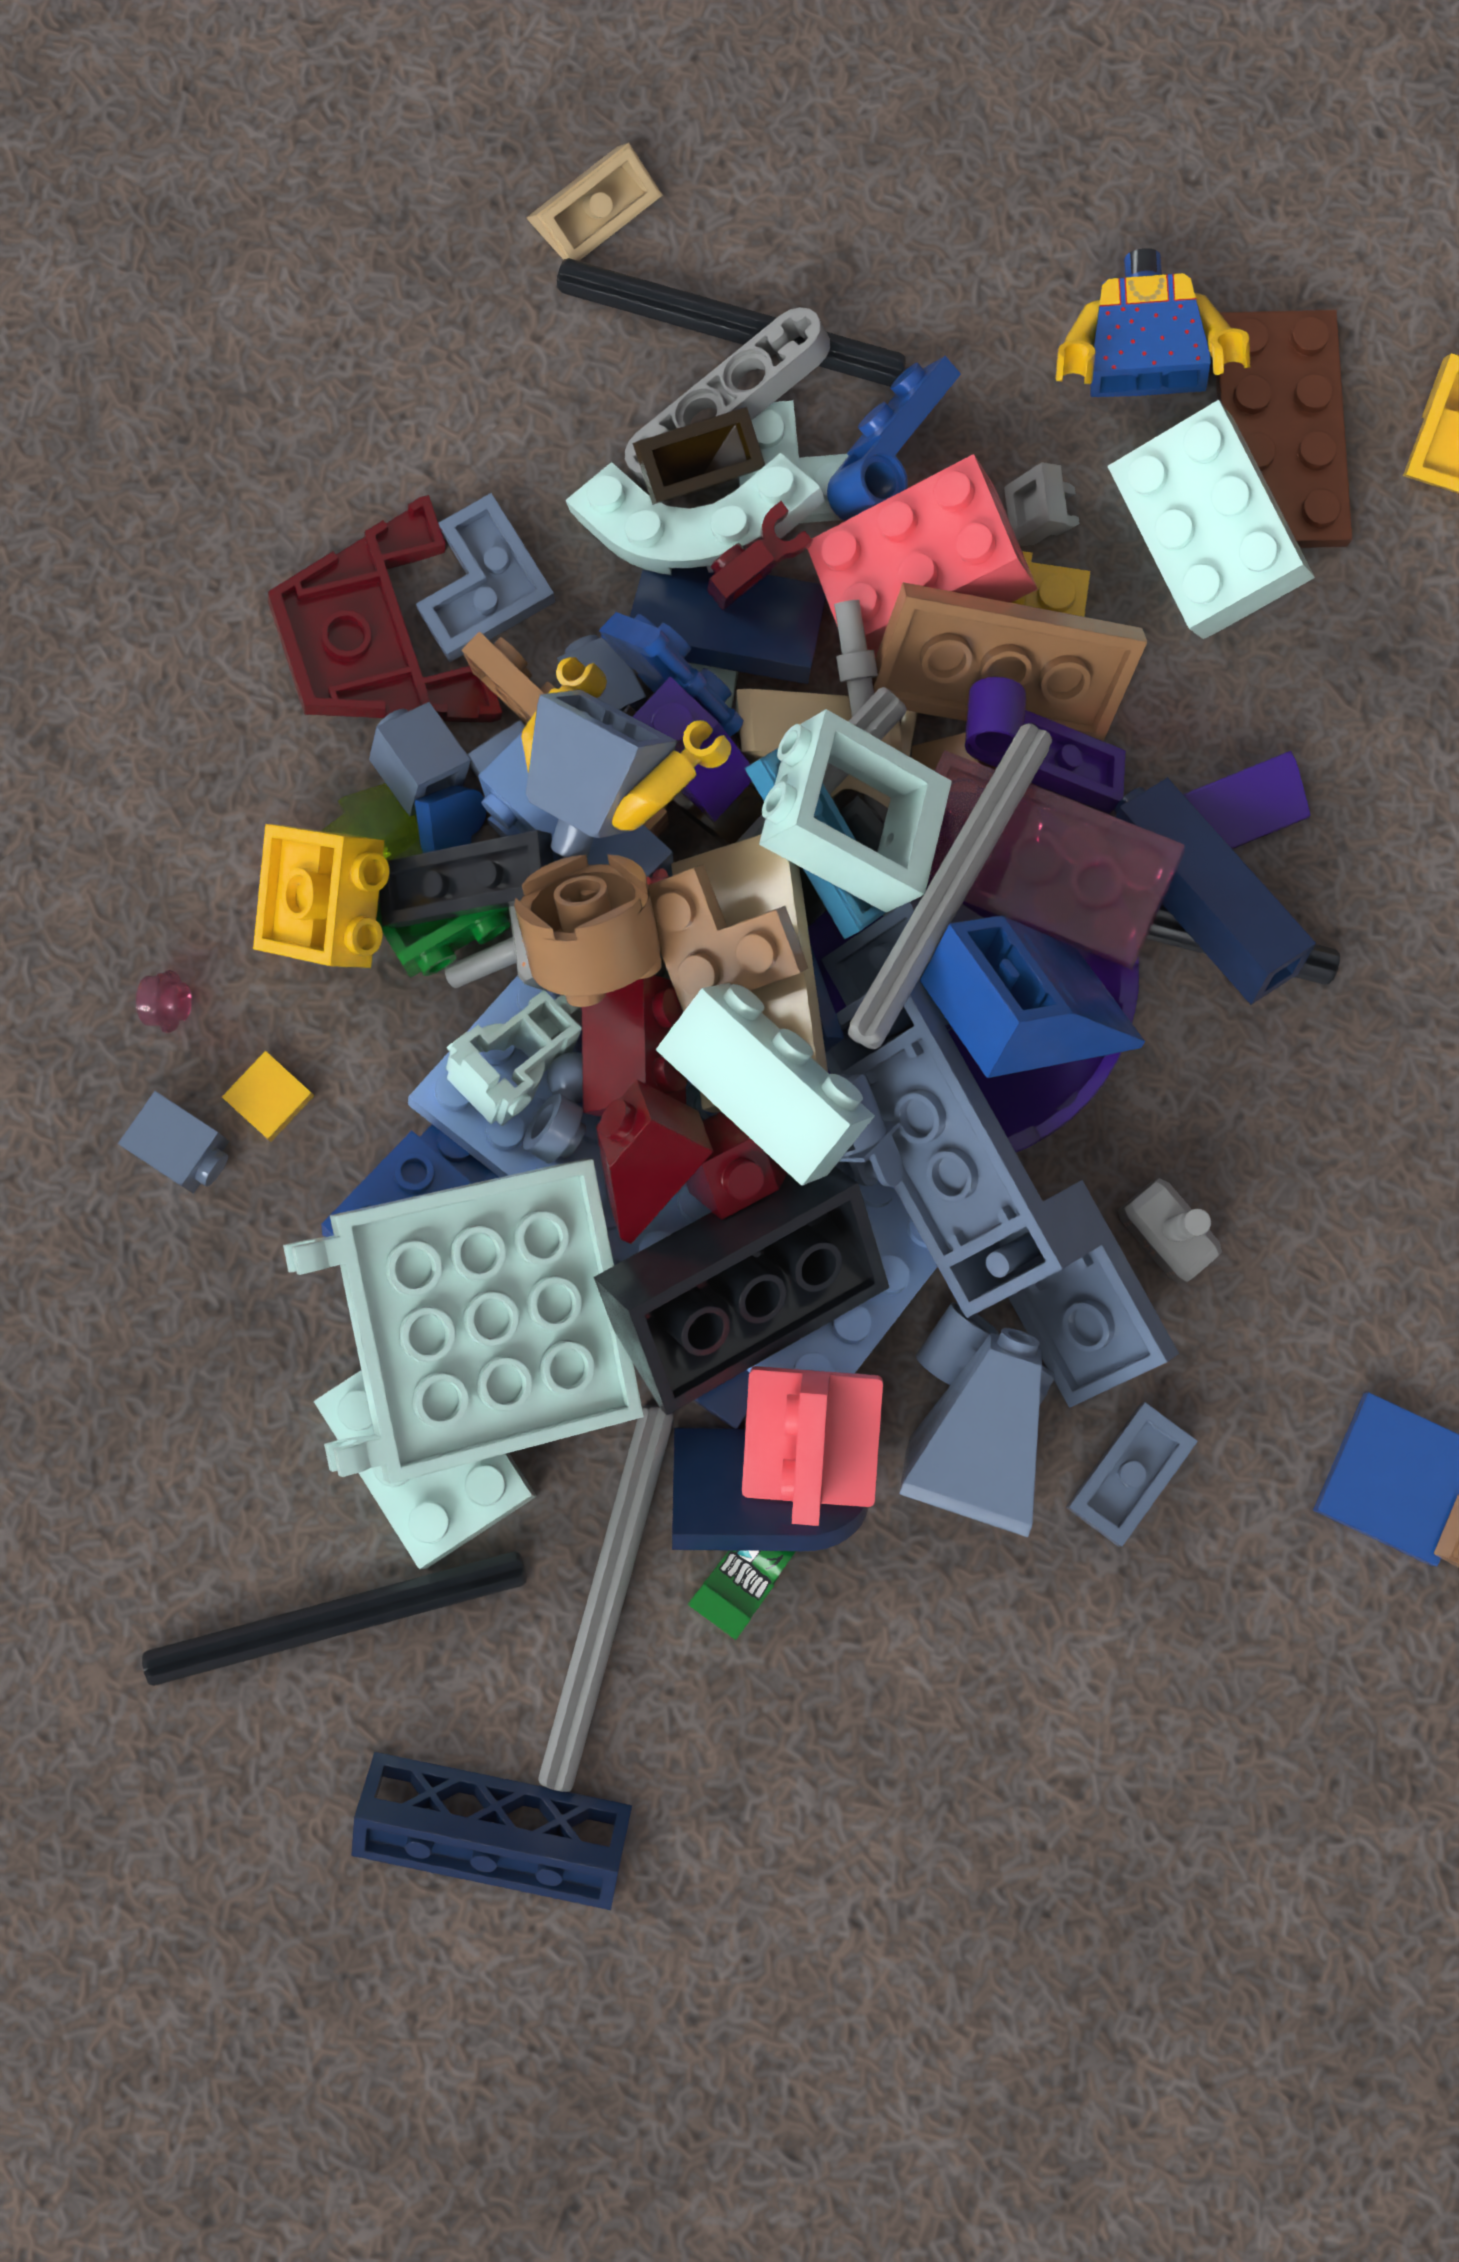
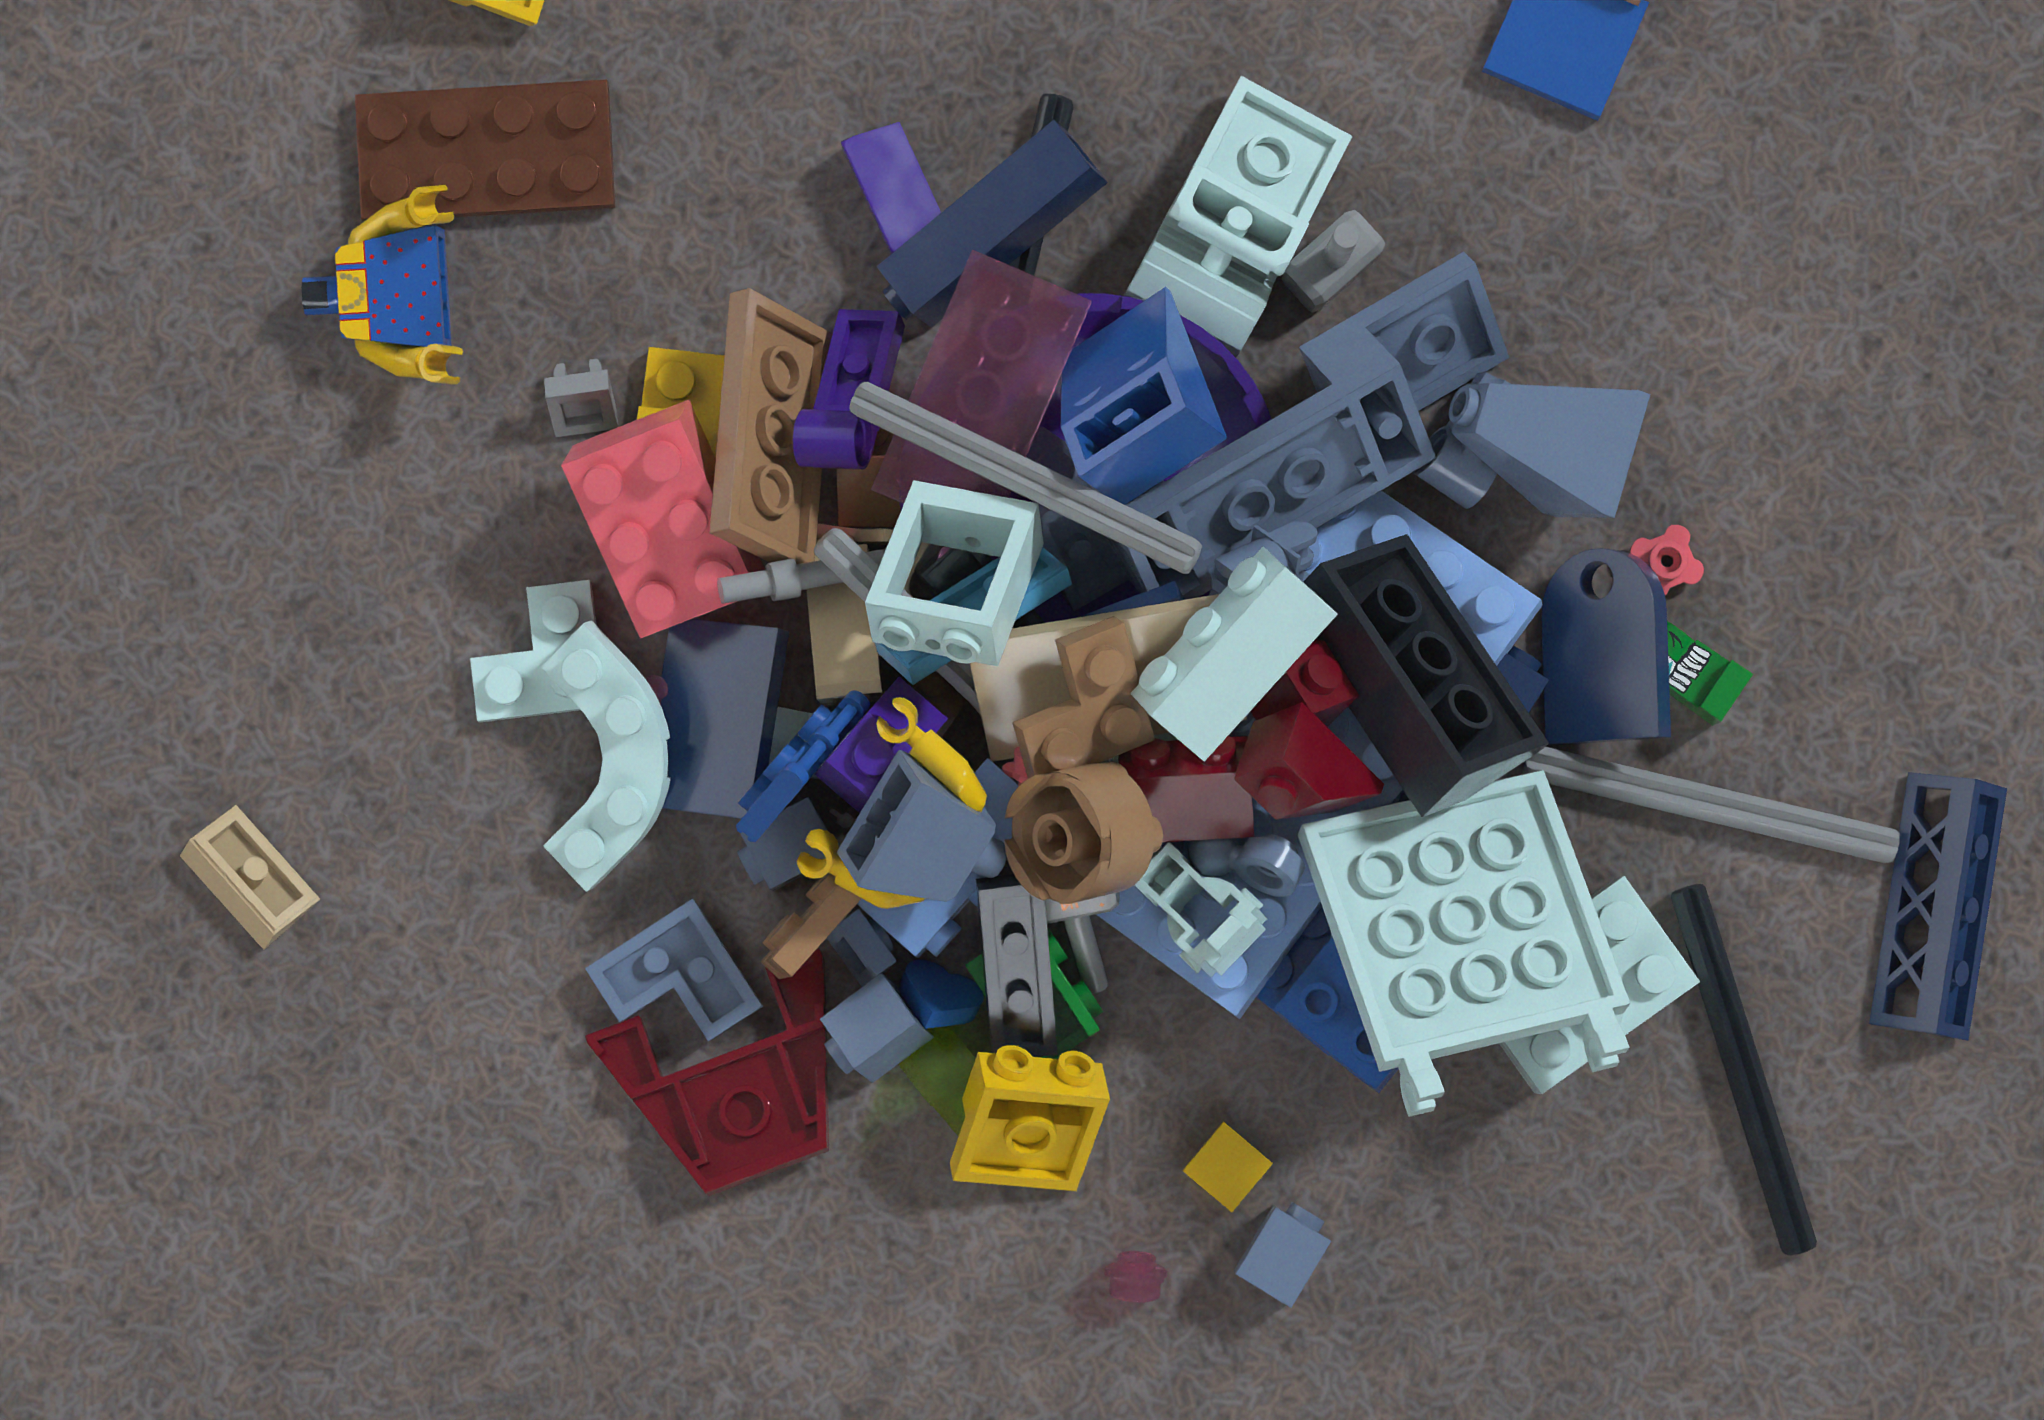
camera: 85 degrees left, 5 degrees up
(699, 456) = (550, 749): dark brown slope -> none
(715, 318) = (382, 727): black axle -> none
(720, 386) = (468, 731): light grey beam -> none
(741, 569) = (677, 700): dark red plate -> none
(812, 1439) = (1563, 604): coral bracket -> none
(871, 467) = (520, 560): blue plate -> none
(874, 1567) = (1674, 544): none -> coral plate
(1131, 1474) = (1572, 296): sand blue plate -> none
(1210, 521) = (602, 224): light aqua brick -> none
(1218, 1134) = (1241, 212): none -> light aqua piece

